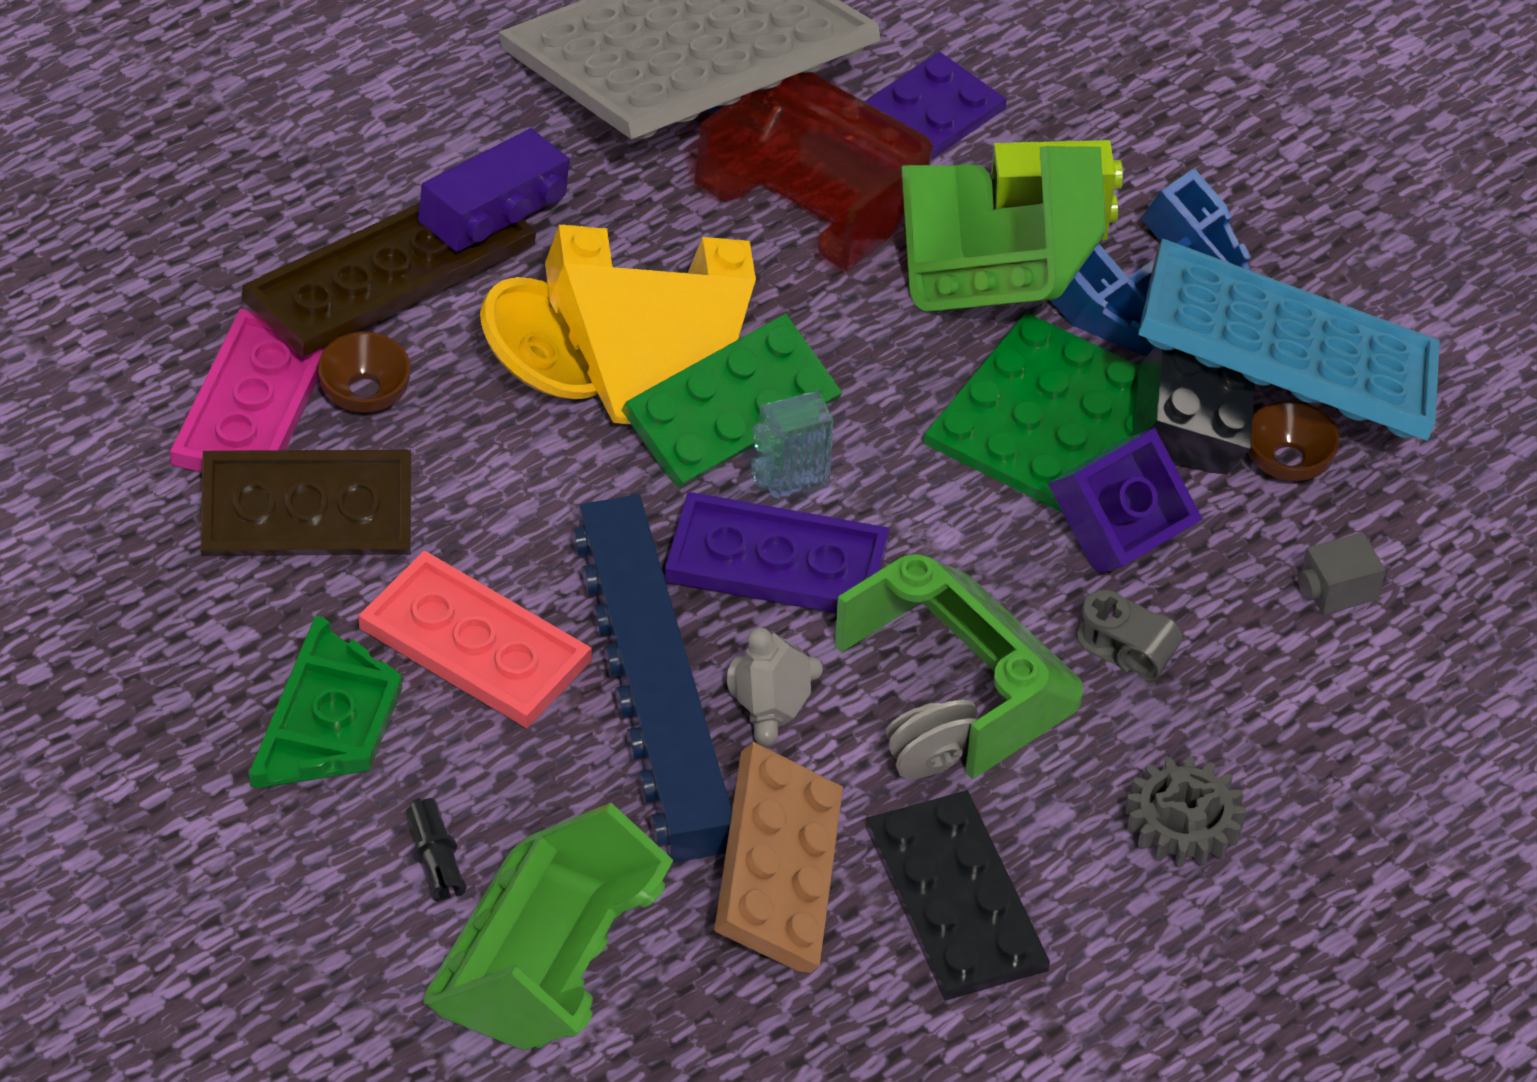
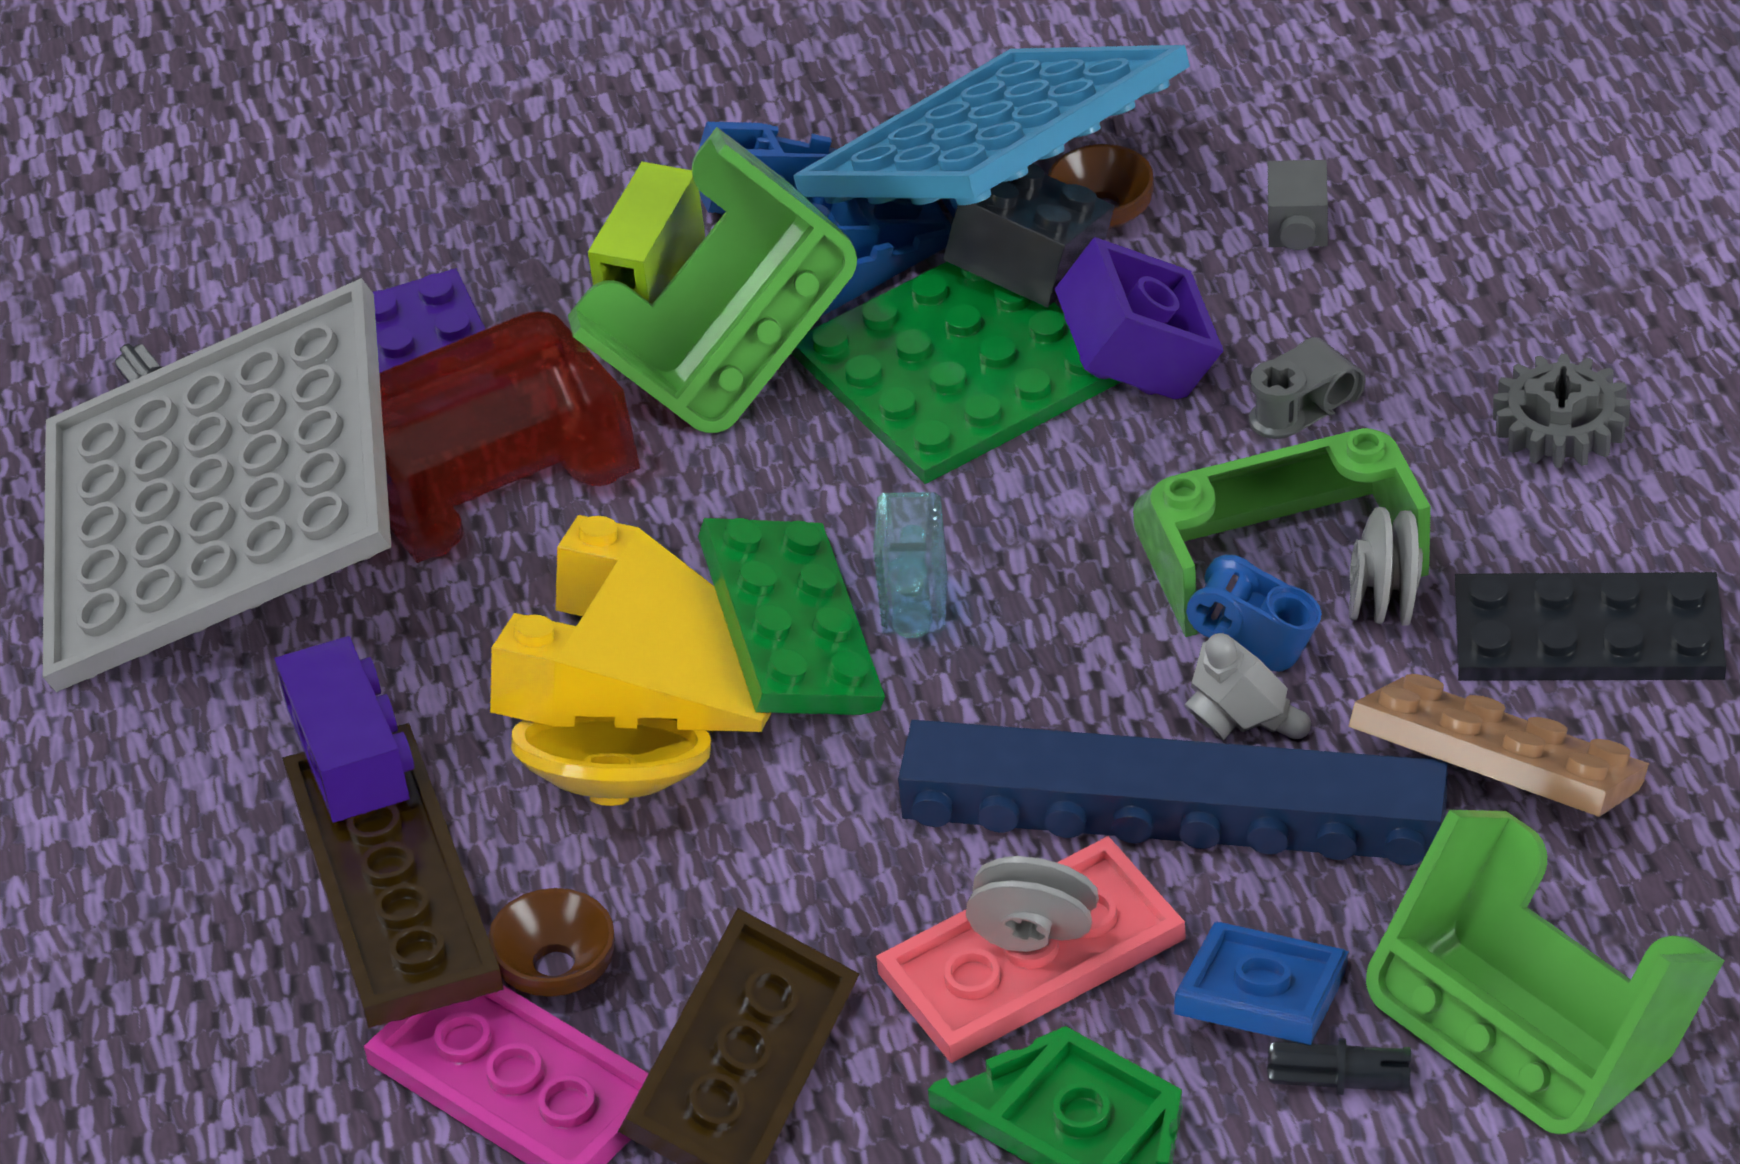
camera: 60 degrees left, 5 degrees down
(476, 610) = (1029, 901): none -> light grey piece
(491, 779) = (1261, 982): none -> blue tile
(772, 552) = (1039, 638): dark purple plate -> none
(847, 657) = (1258, 613): none -> blue piece

